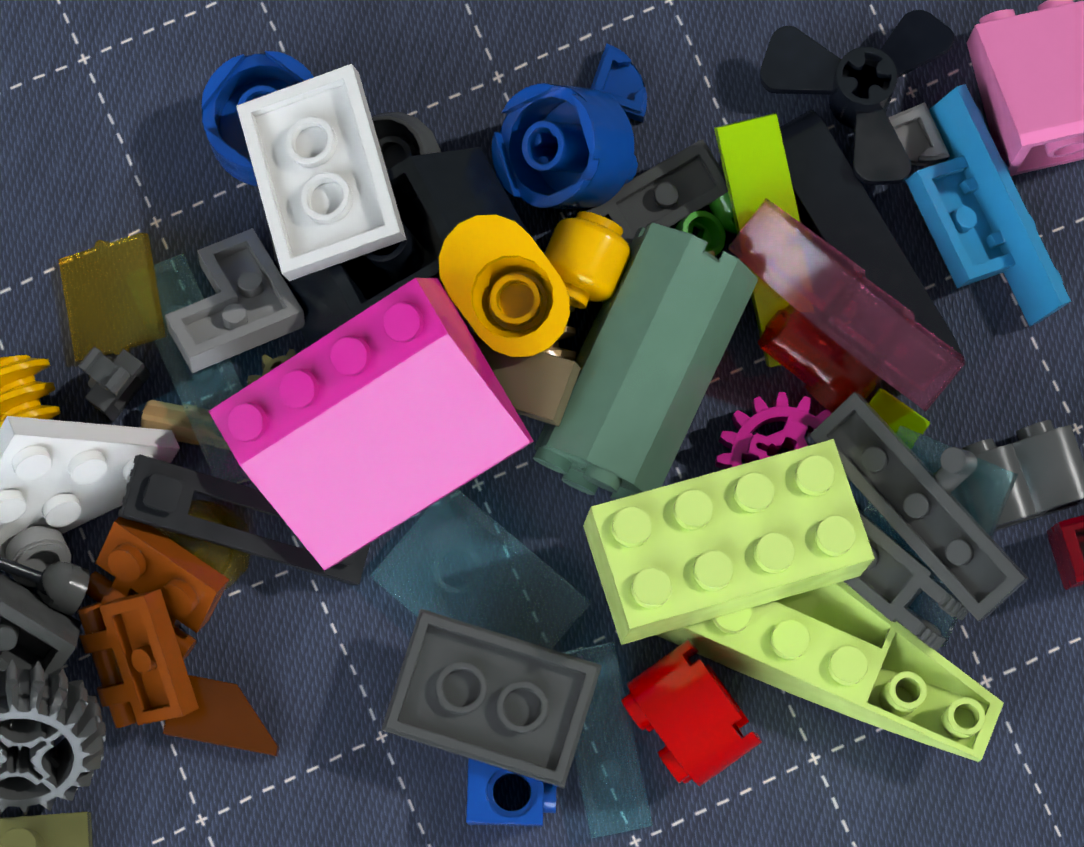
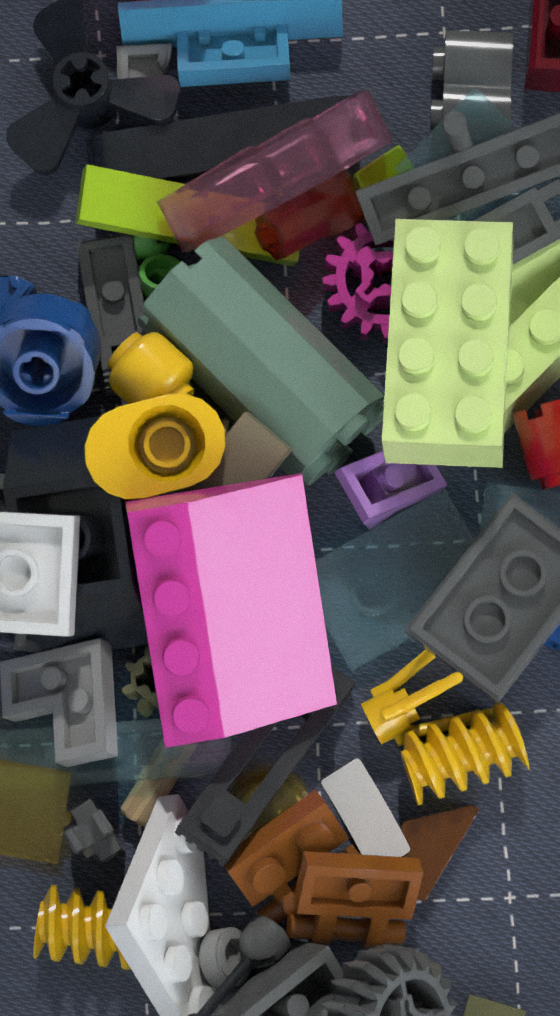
camera: 65 degrees left, 0 degrees up
(232, 643) = (365, 811): none -> white sticker
(323, 715) = (462, 752): none -> yellow piece
(342, 633) = (394, 712): none -> yellow plant
(557, 534) = (383, 488): none -> medium lavender slope

